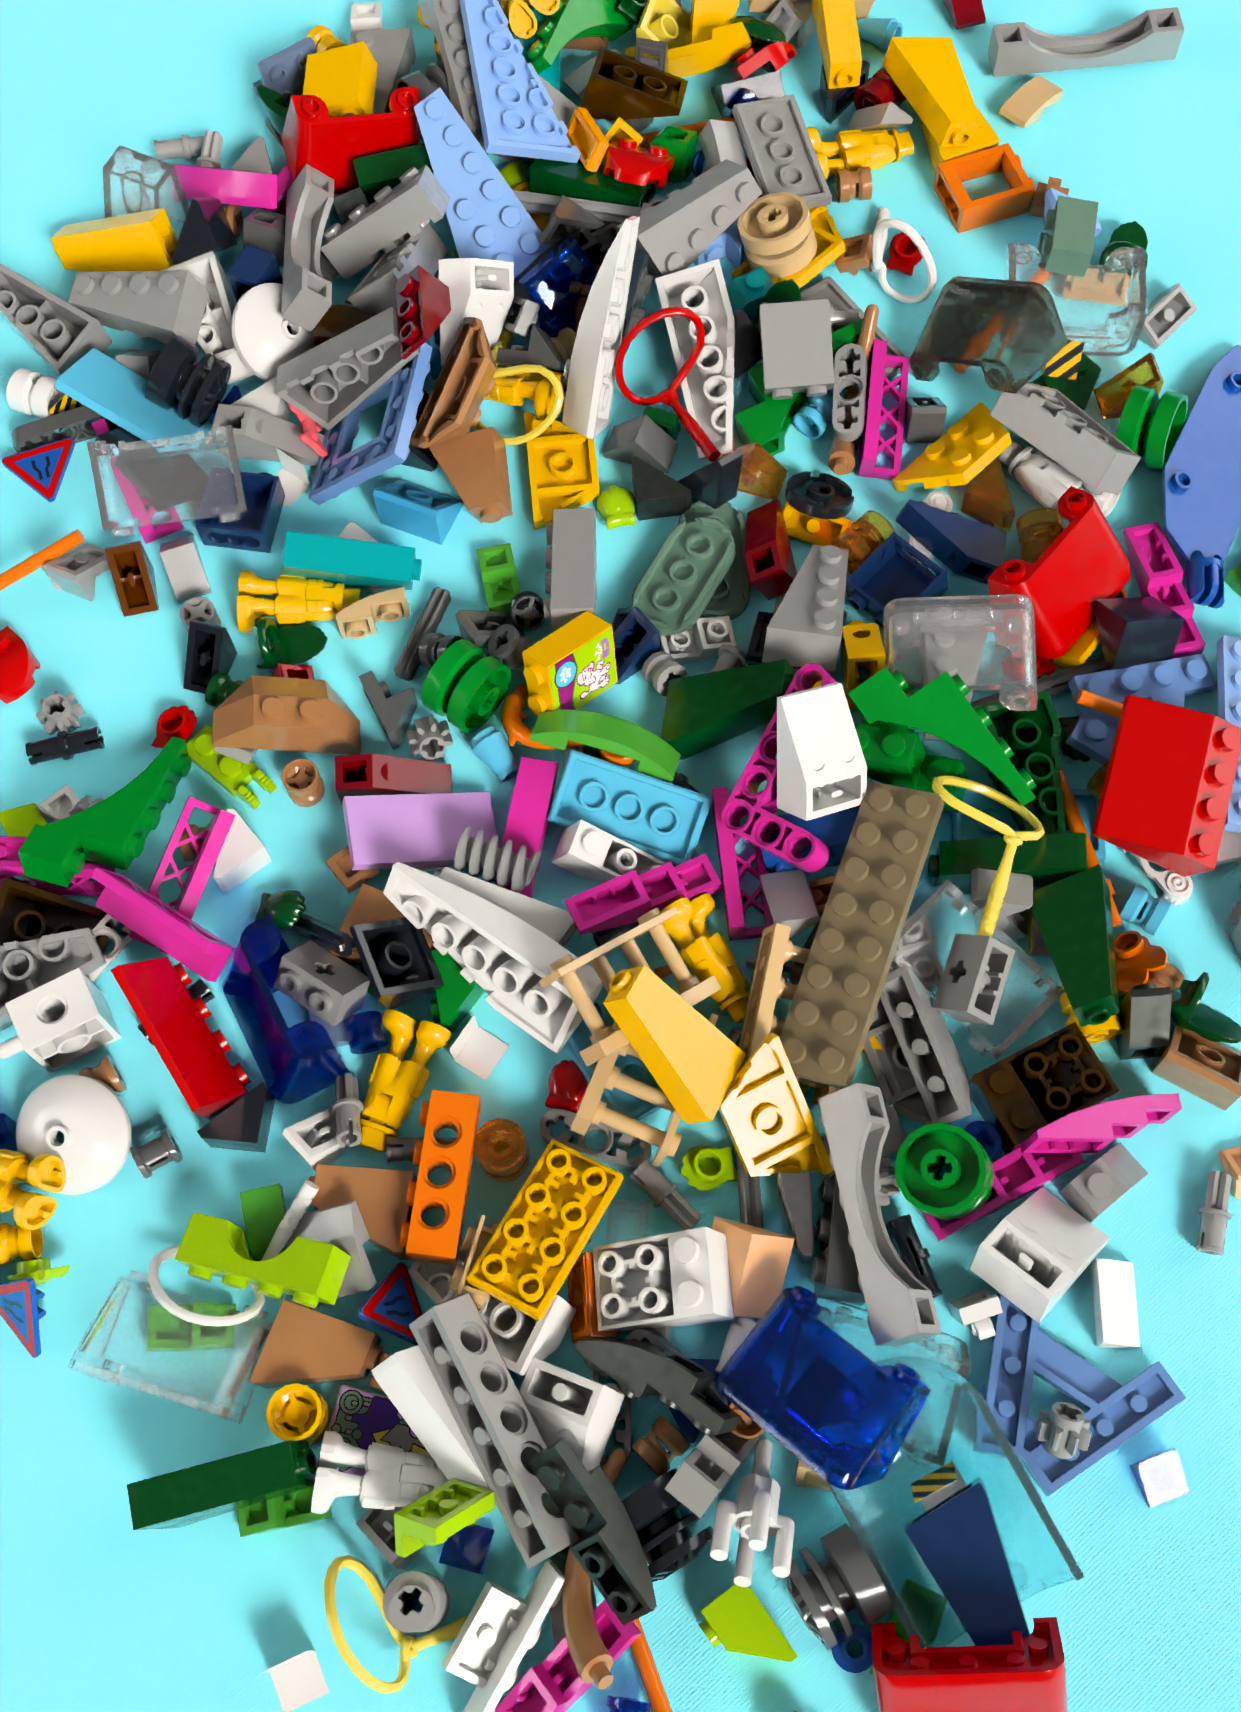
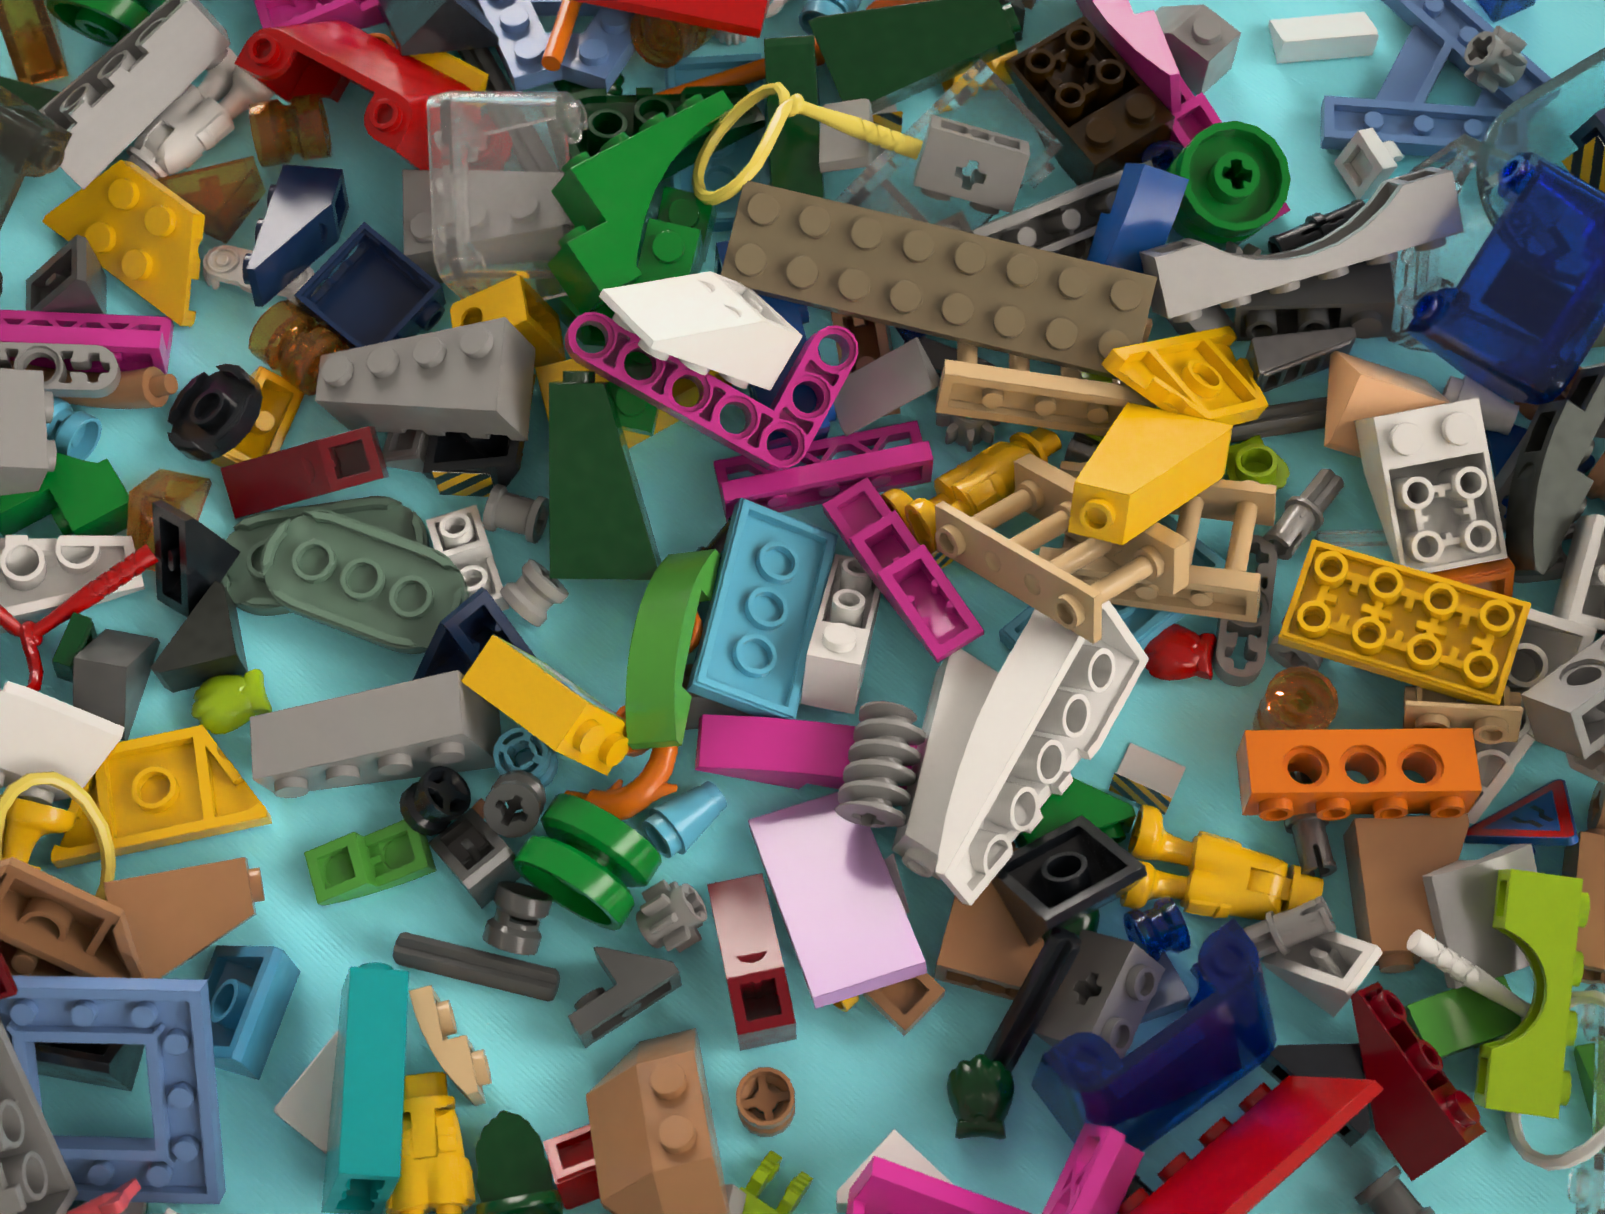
camera: 100 degrees left, 0 degrees up
(225, 1169) = (1419, 1109): none -> dark red slope
(906, 1088) = (1139, 216): none -> blue slope
(1038, 1253) = (1299, 90): white slope -> none

